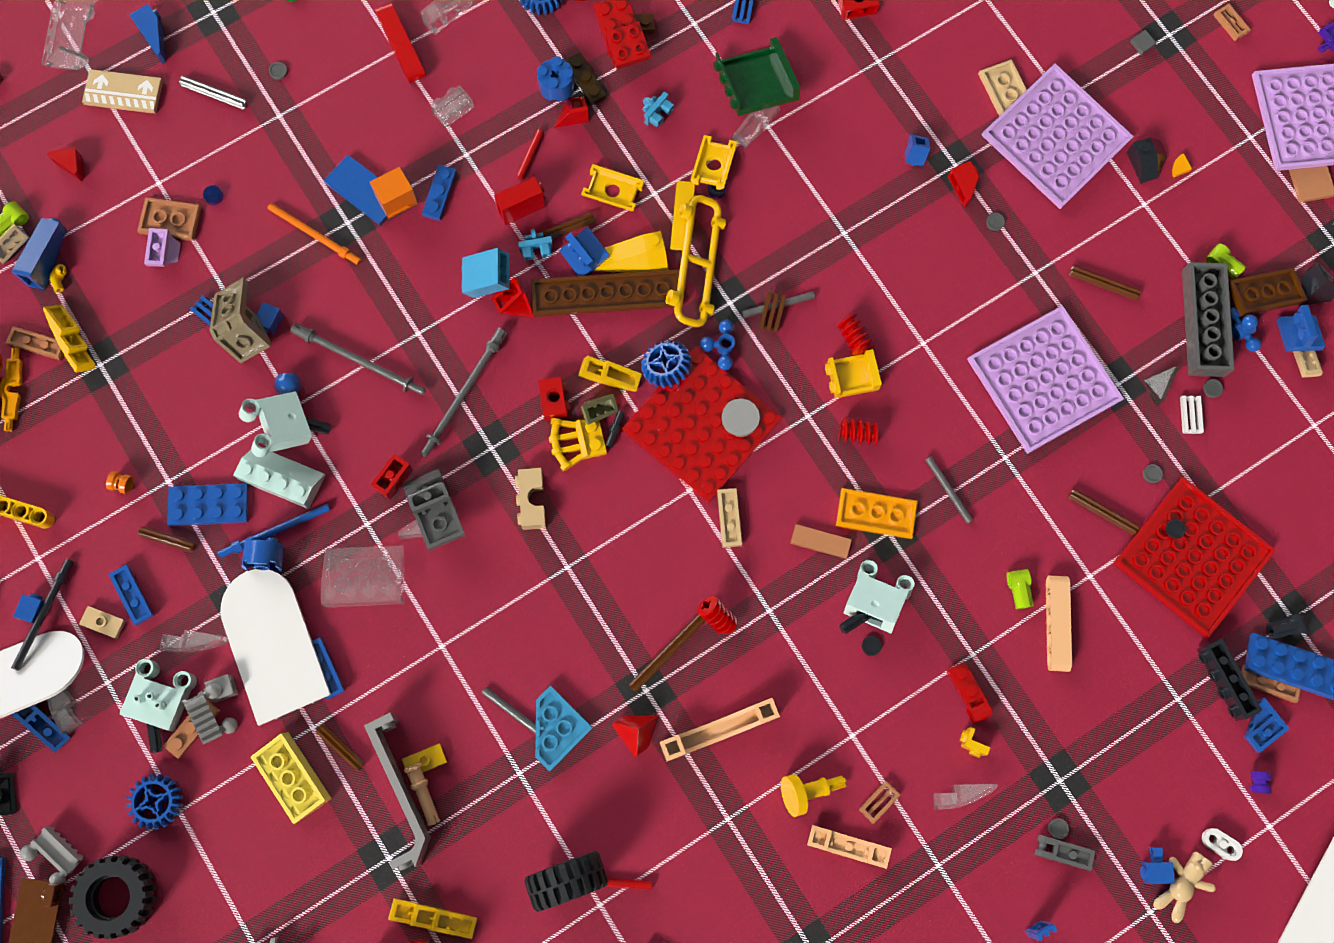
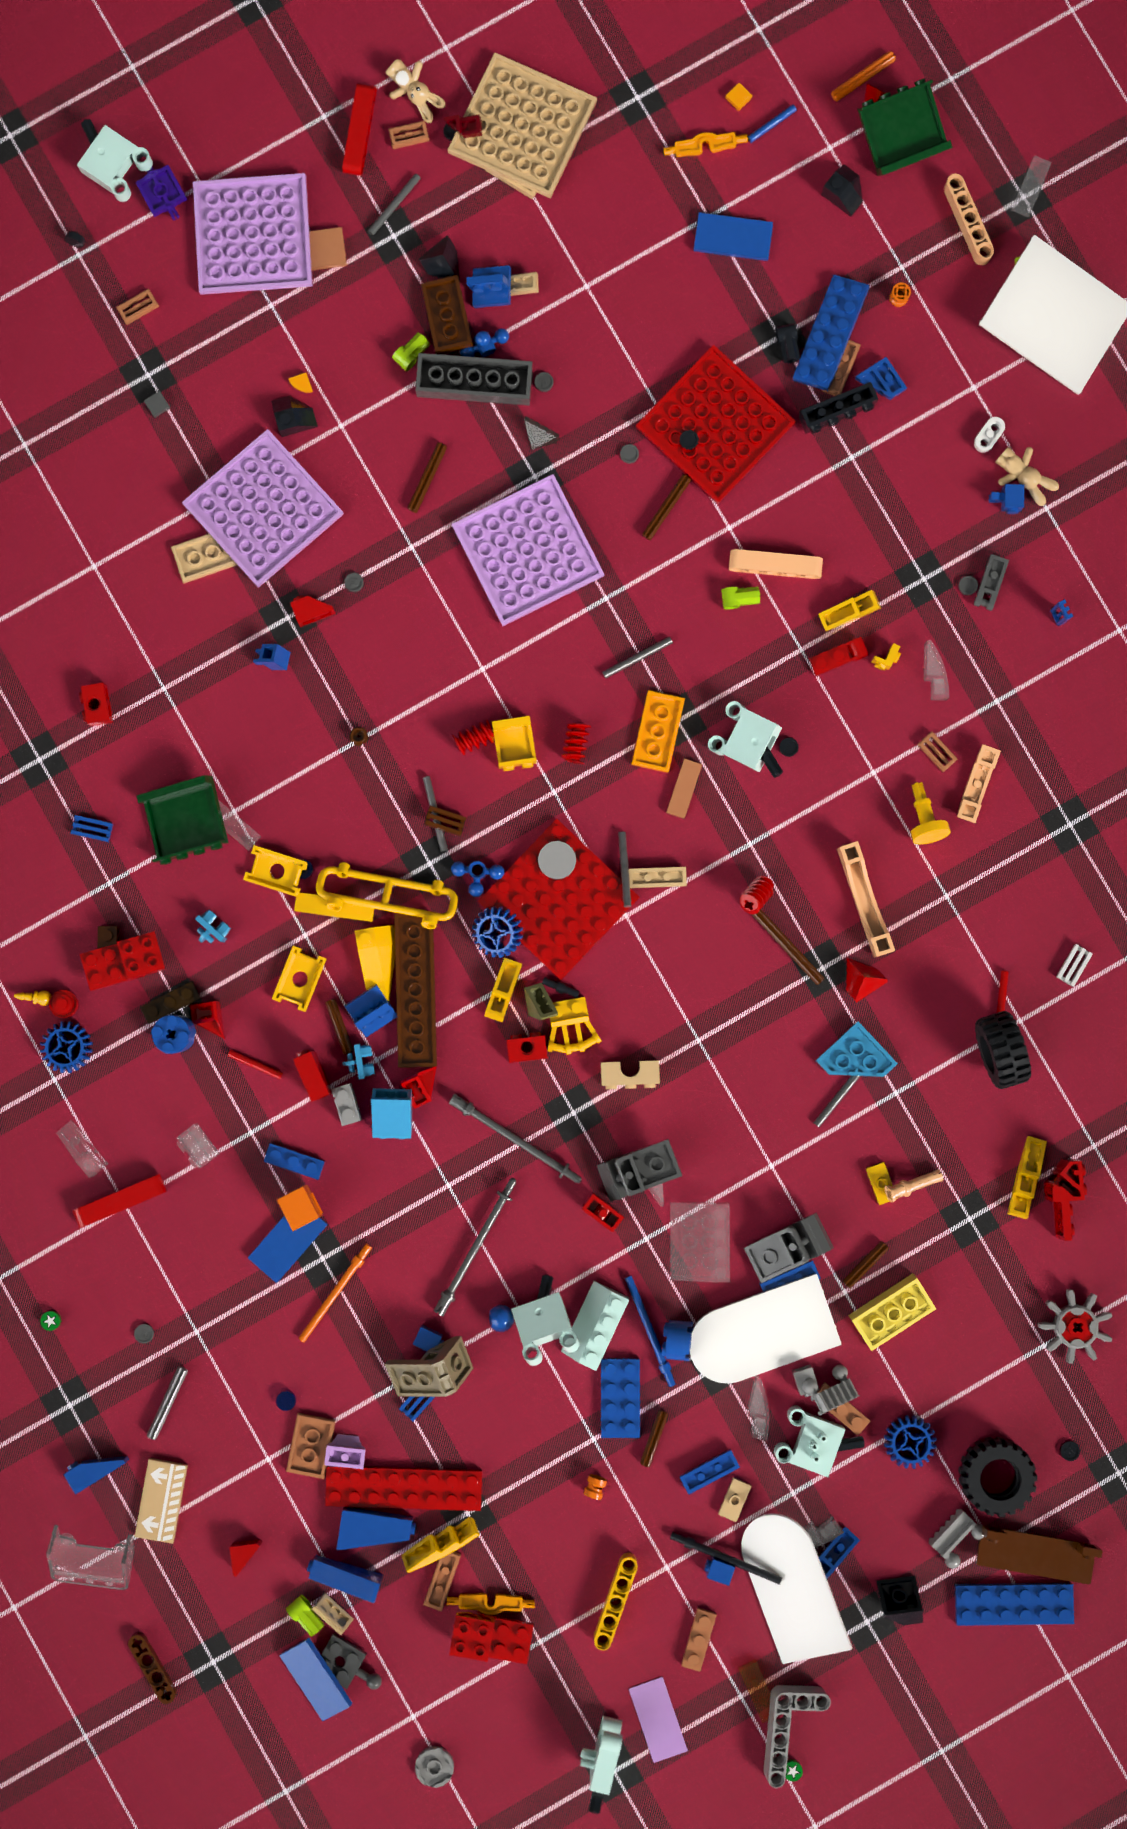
camera: 80 degrees left, 10 degrees up
(56, 277) = (370, 1561): yellow arm -> none
(88, 275) = (371, 1527): none -> blue slope
(125, 306) = (404, 1488): none -> red plate
(356, 665) = (788, 1248): none -> dark grey piece
(422, 836) = (971, 1193): light grey panel -> none
(494, 234) = (346, 1104): none -> light grey brick
(735, 484) = (624, 869): none -> flat silver bar
(848, 227) = (358, 731): none -> reddish brown plate
(1019, 702) = (849, 610): none -> yellow slope
(1198, 410) = (571, 407): white tile -> none
(1260, 782) = (934, 390): dark purple wheel -> none

